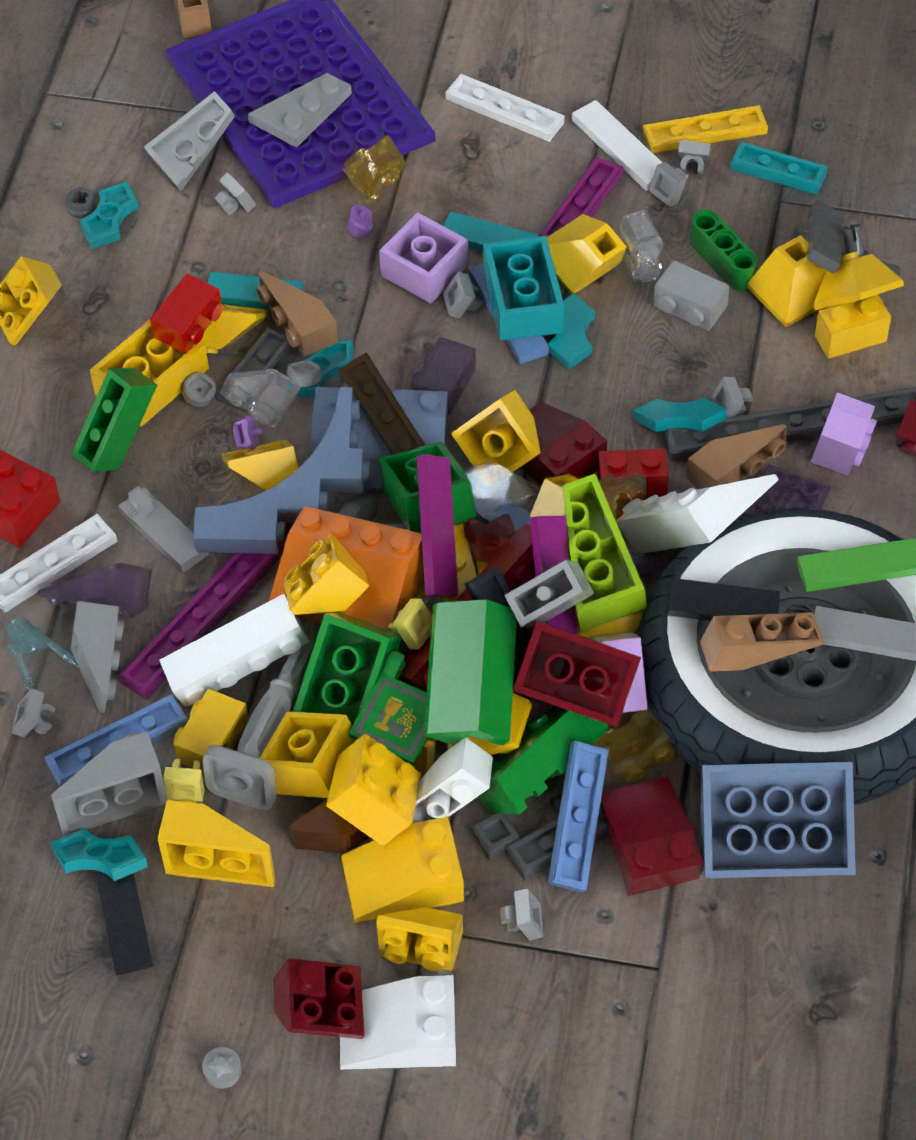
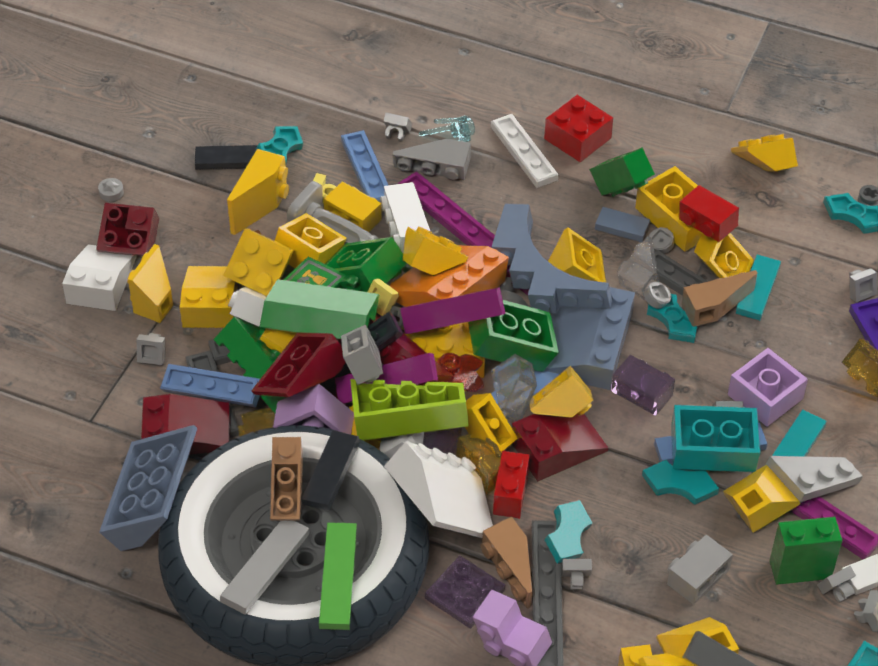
camera: 100 degrees right, 5 degrees down
(111, 786) = (323, 148): light grey slope -> none
(113, 585) = (485, 167): clear purple slope -> none
(161, 528) = (549, 203): light grey hinge -> none
(174, 436) = (622, 224): none -> sand blue tile
(246, 433) = (611, 262): medium lavender piece -> none
(360, 221) = (825, 360): medium lavender piece -> none
(380, 405) = (596, 324): dark brown tile -> none
(539, 208) = (814, 475): none -> light grey wing
(643, 246) = (751, 533): clear brick -> none
(656, 190) = (805, 550): none -> green brick
(722, 249) = (758, 595): green beam -> none

